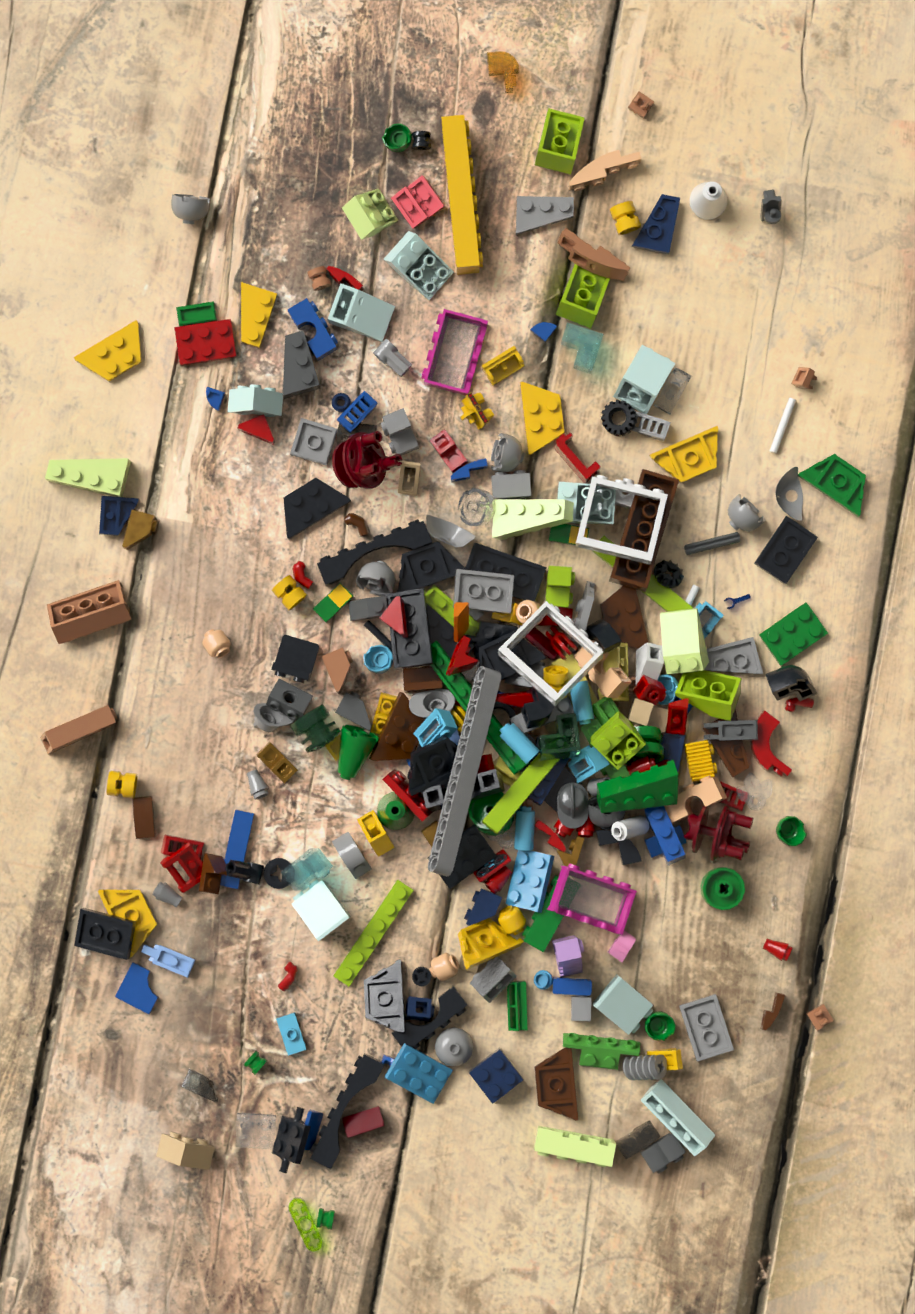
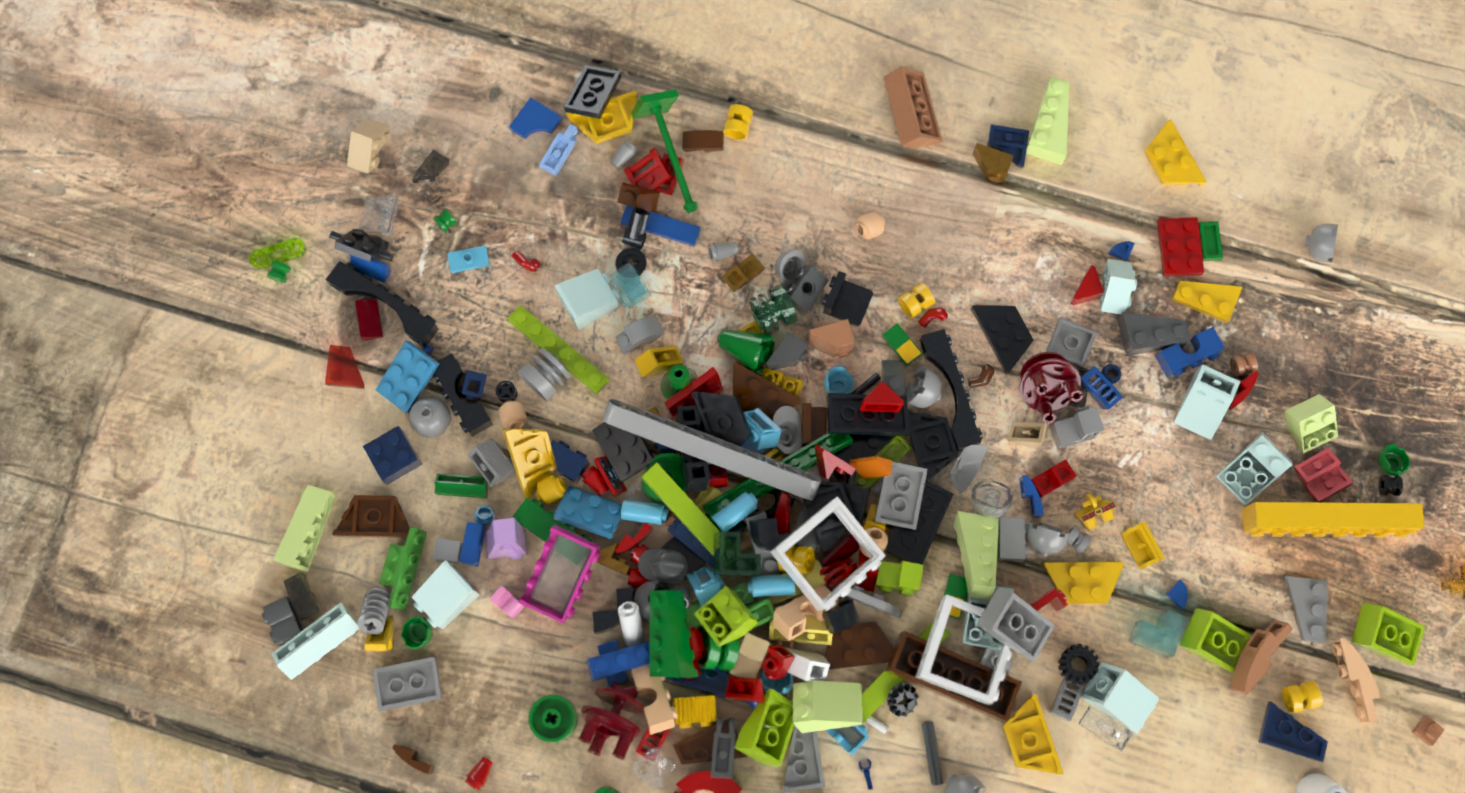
camera: 95 degrees right, 10 degrees down
(78, 729) = (797, 86): nougat slope -> none
(118, 867) = (655, 105): none -> green tile
(386, 998) = (488, 352): wing -> none
(389, 355) = (1158, 428): light grey piece -> none
(402, 941) = (544, 374): none -> light grey wheel
(415, 1138) = (342, 369): none -> clear red wing
(454, 352) = (1159, 496): clear window -> none
(504, 424) = (1082, 540): none -> light grey wheel
(596, 478) = (1015, 624): none -> light grey slope

